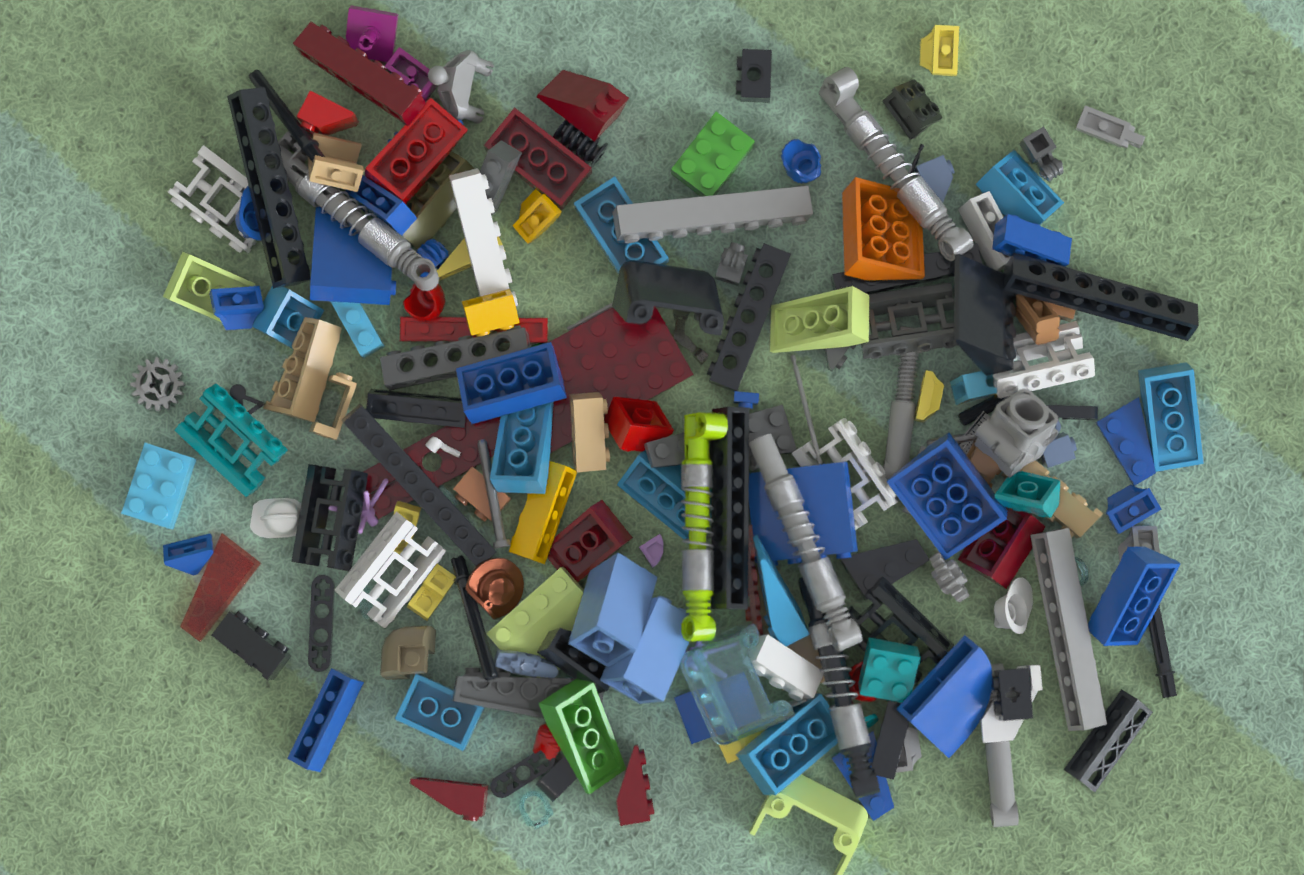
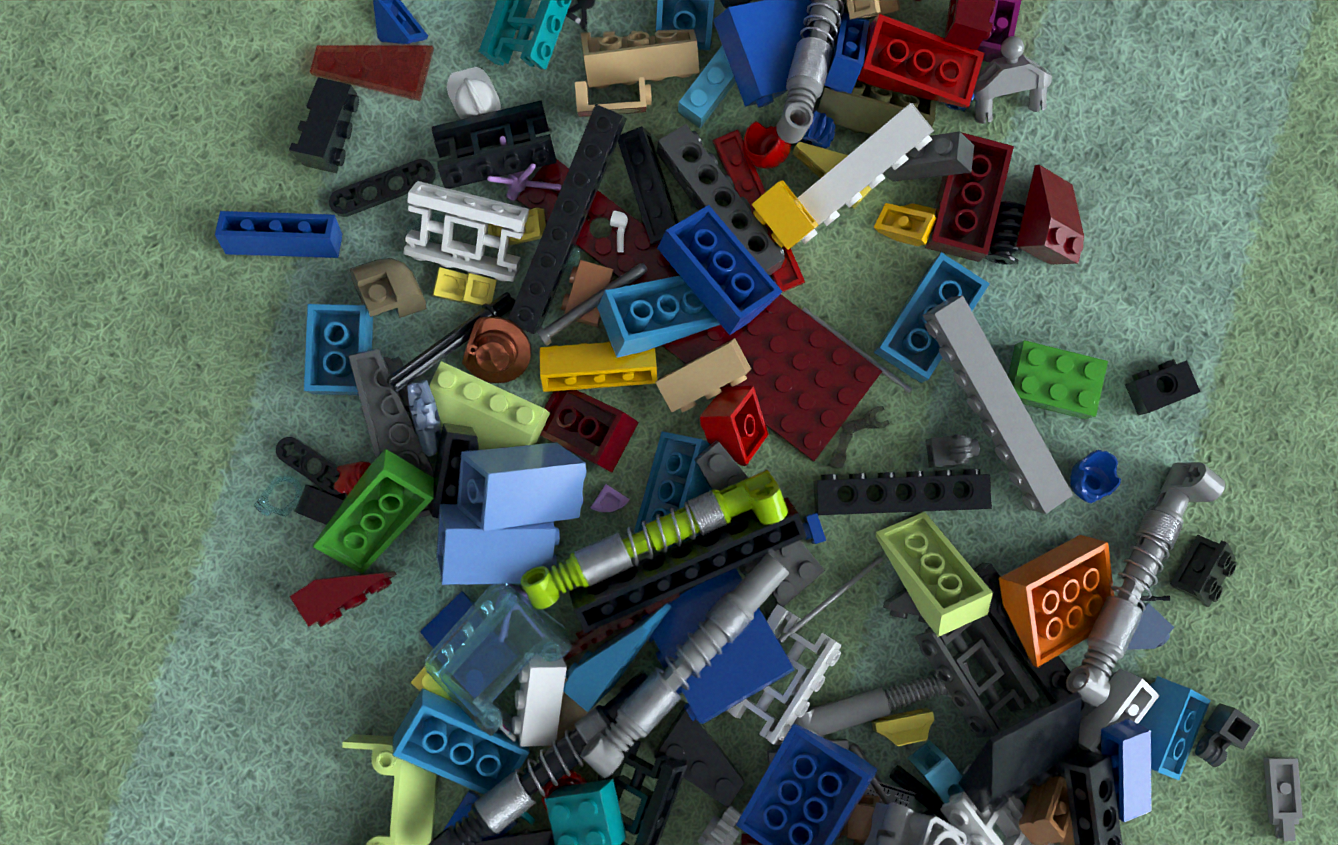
camera: 55 degrees right, 0 degrees up
(458, 796) = (254, 404): dark red slope -> none
(651, 284) = (891, 368): black windscreen -> none
(940, 50) = (1282, 574): light yellow slope -> none

